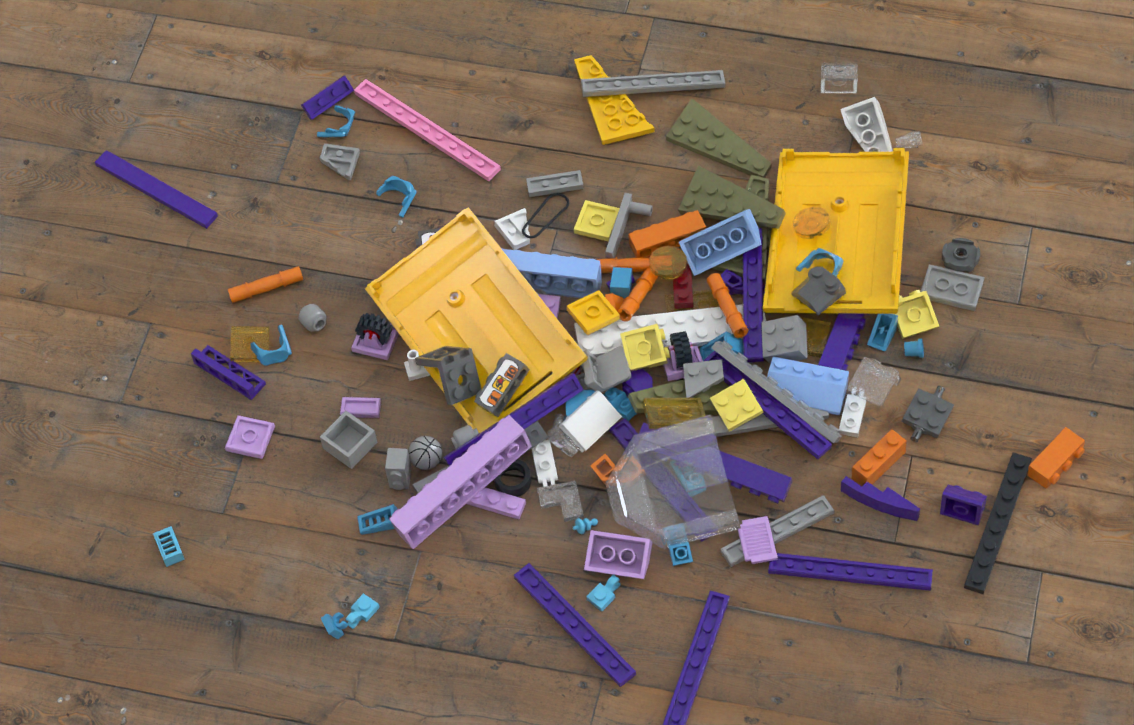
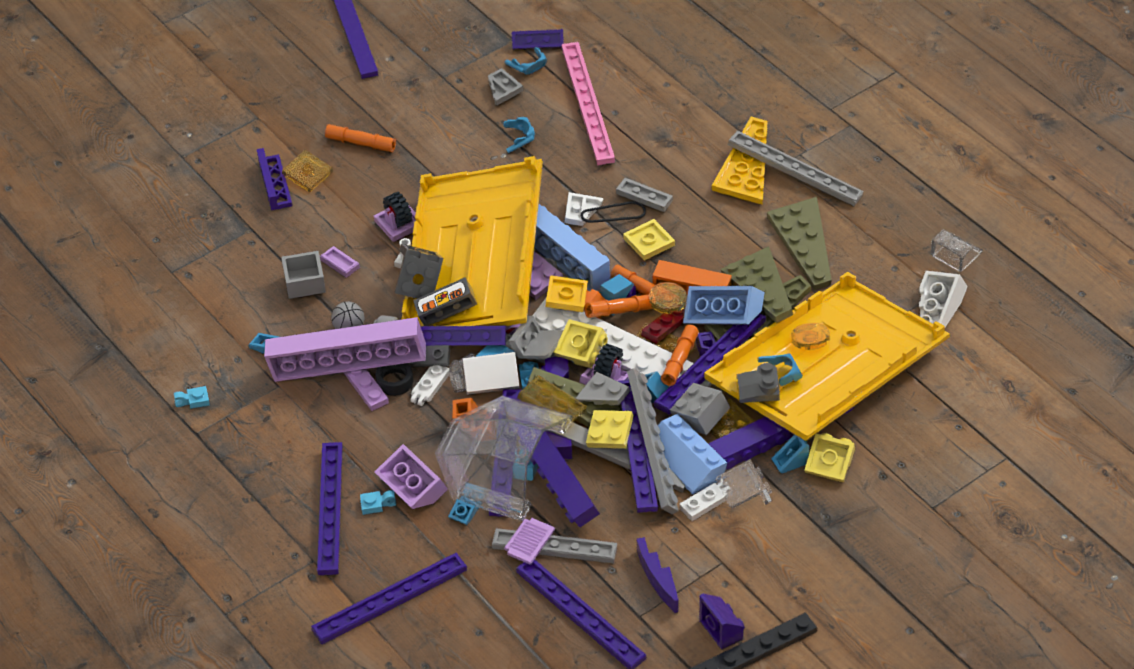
camera: 35 degrees right, 10 degrees down
(173, 557) = (115, 271): medium azure slope -> none
(250, 437) = (241, 232): lavender plate -> none
(276, 356) = (316, 189): dark azure helmet -> none
(312, 317) = (367, 179): light grey head -> none
(333, 626) = (161, 392): dark azure tile -> none
(398, 468) = (315, 314): light grey brick -> none
(562, 494) = (418, 416): clear plate -> none
(584, 525) = (409, 443): medium azure hair -> none
(626, 208) = (665, 251): light grey piece -> none
(879, 458) = (687, 544): orange brick -> none
(909, 140) = (966, 330): clear cone -> none
(914, 348) = (805, 484): dark azure piece -> none
(927, 413) = (766, 539): dark grey plate -> none
(952, 287) = (887, 460): light grey tile -> none
(970, 256) = (915, 447): dark grey plate -> none
(1056, 458) = (837, 639): orange brick -> none

